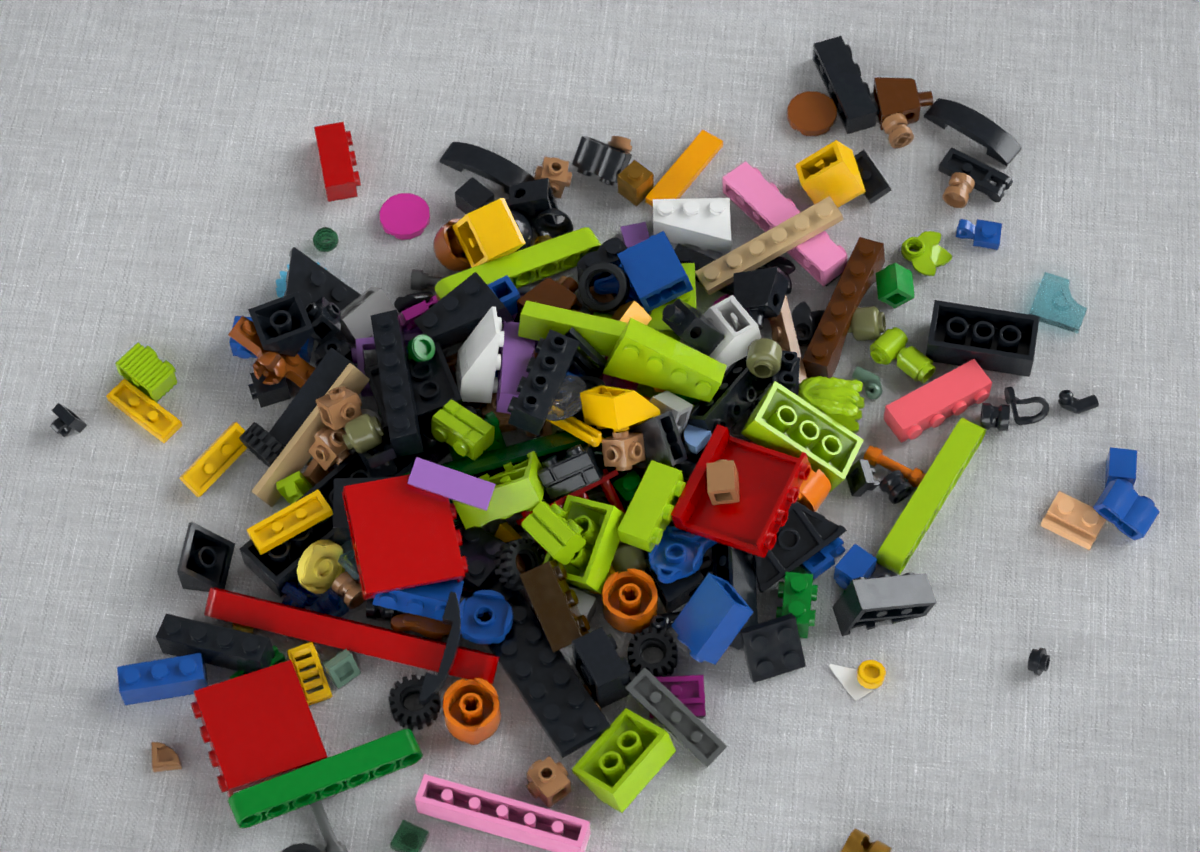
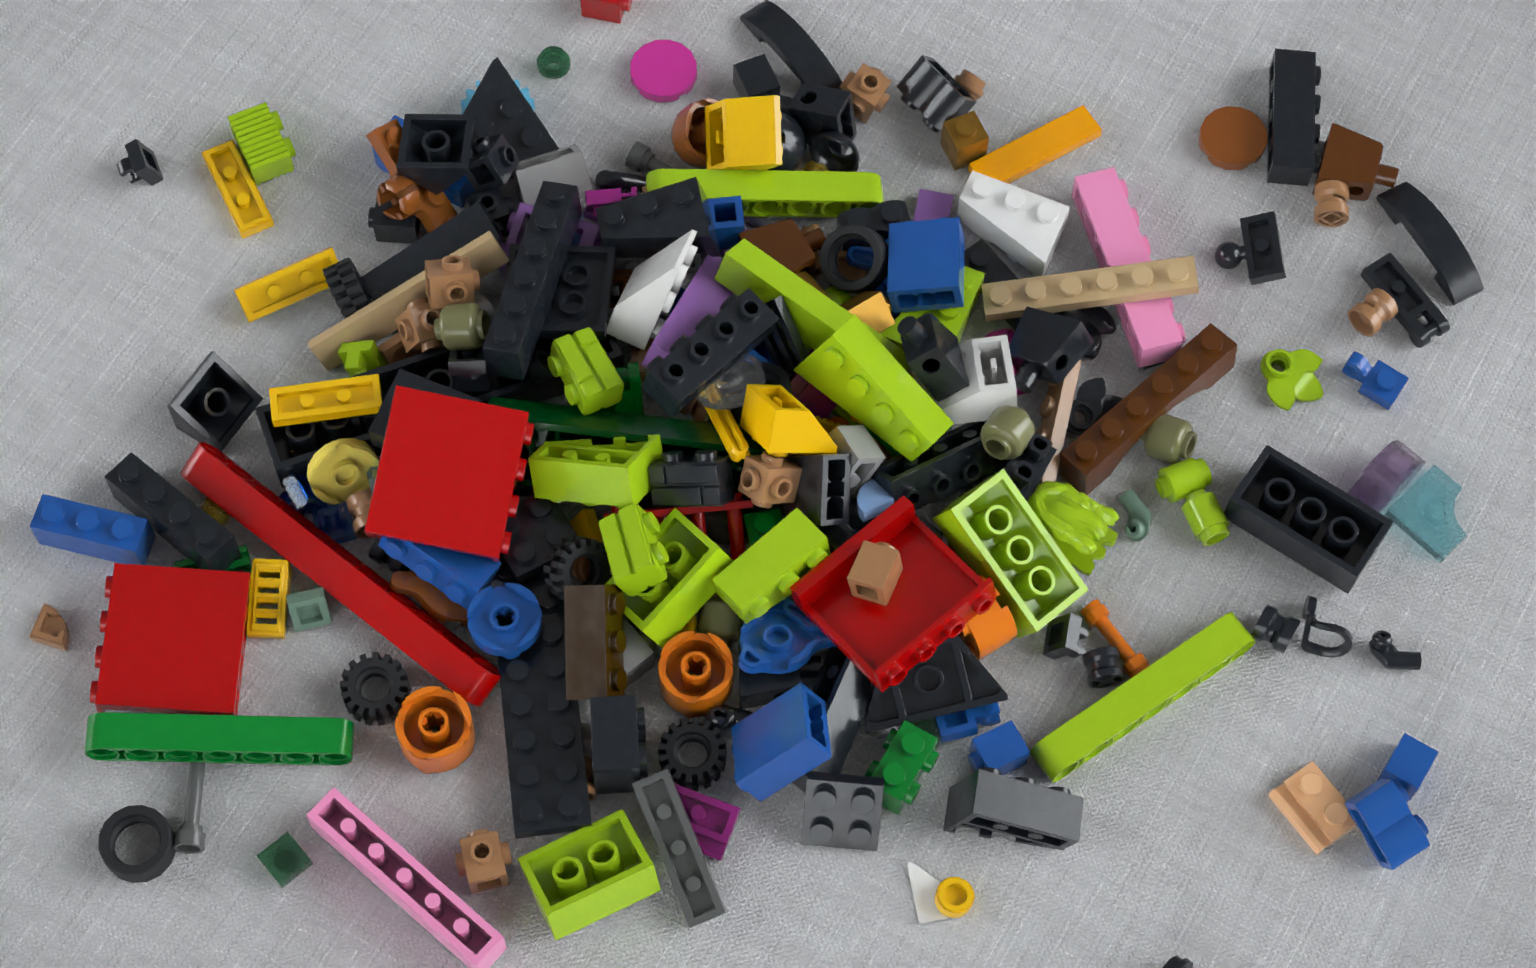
camera: 20 degrees right, 5 degrees up
(421, 348) = (586, 247): green tile -> none
(433, 683) = (397, 677): black slope -> none
(451, 484) = (529, 436): medium lavender tile -> none
(831, 173) = (1214, 228): yellow slope -> none
(895, 285) = (1228, 403): green brick -> none
(937, 401) = (1212, 577): coral brick -> none
(1019, 289) = (1387, 475): none -> clear purple brick

